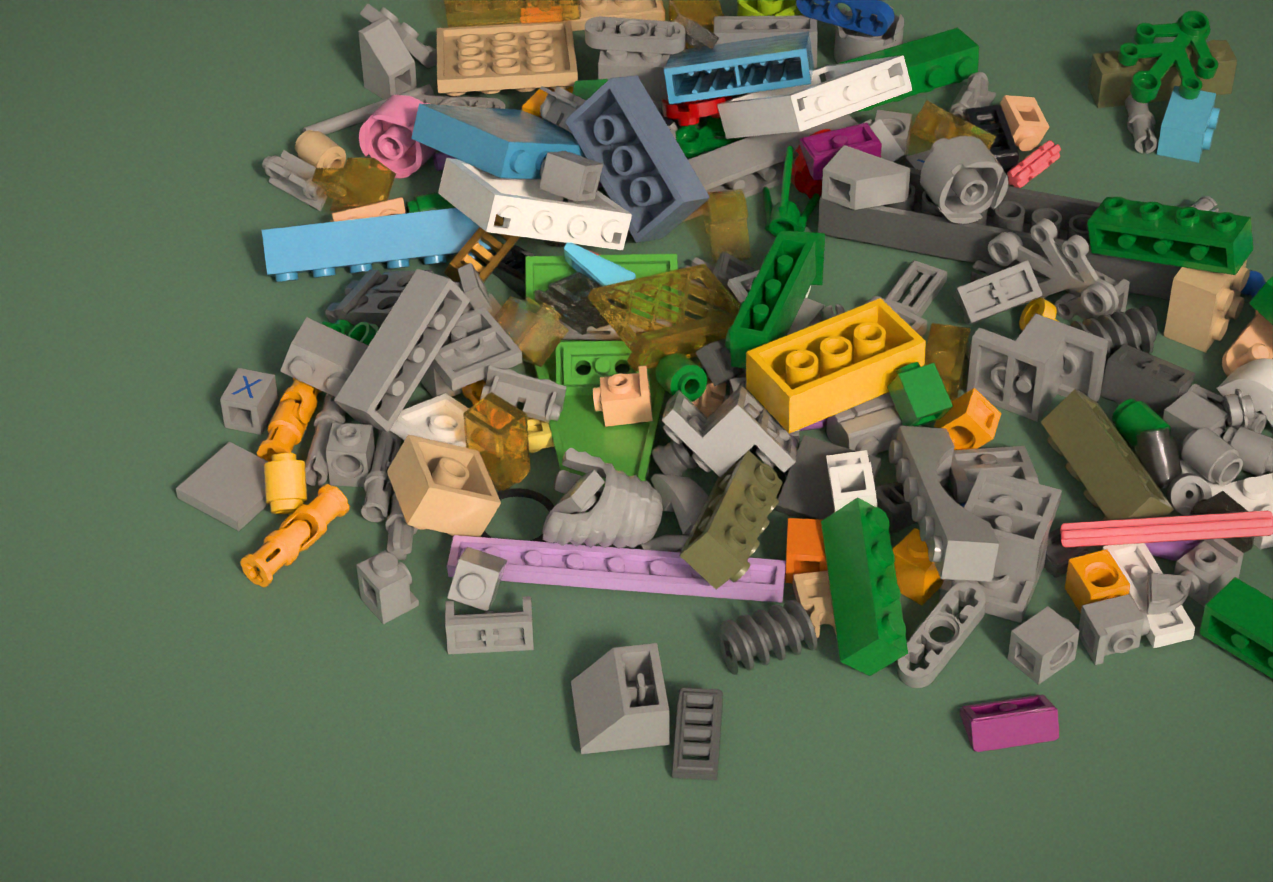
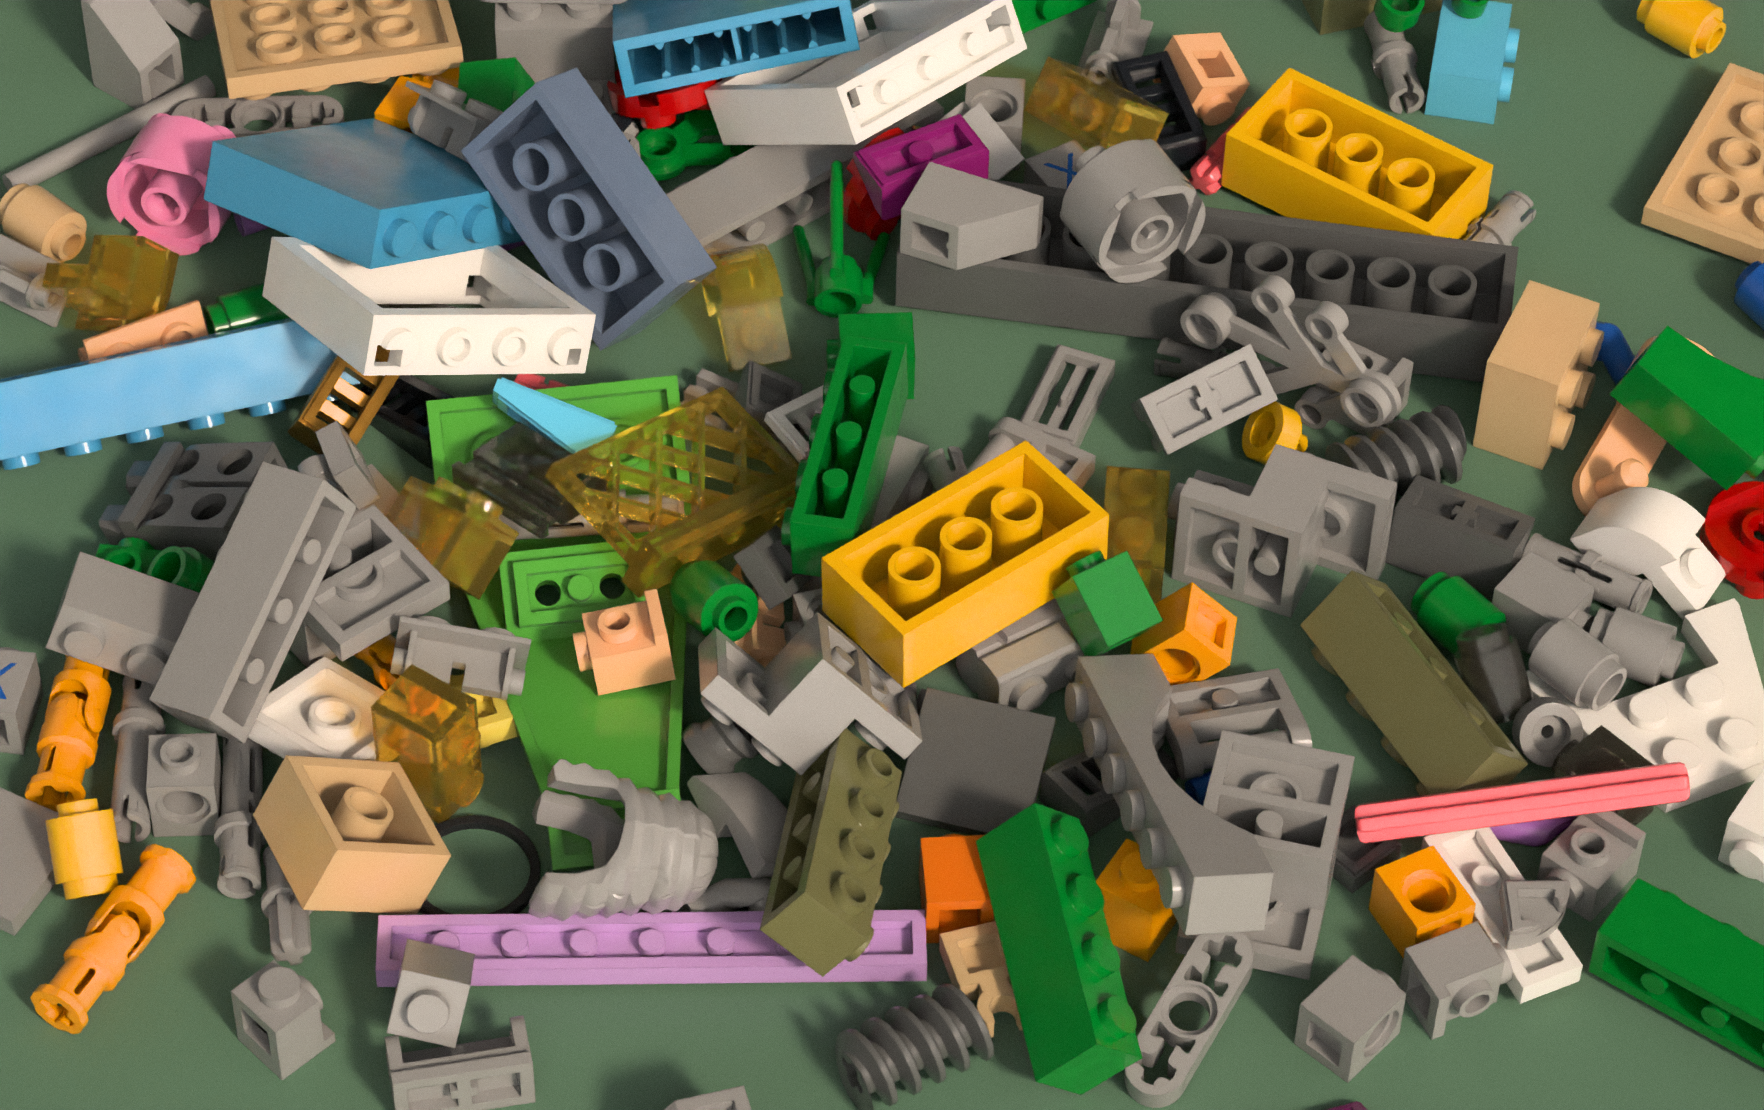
camera: 10 degrees left, 5 degrees up
(570, 176) = (484, 253): light grey brick -> none
(580, 495) = (579, 843): light grey slope -> none
(851, 478) = (1015, 766): white brick -> none
(1095, 165) = (1349, 164): none -> yellow brick
(1171, 235) = (1475, 287): green brick -> none
(1239, 409) = (1611, 577): light grey plate -> none

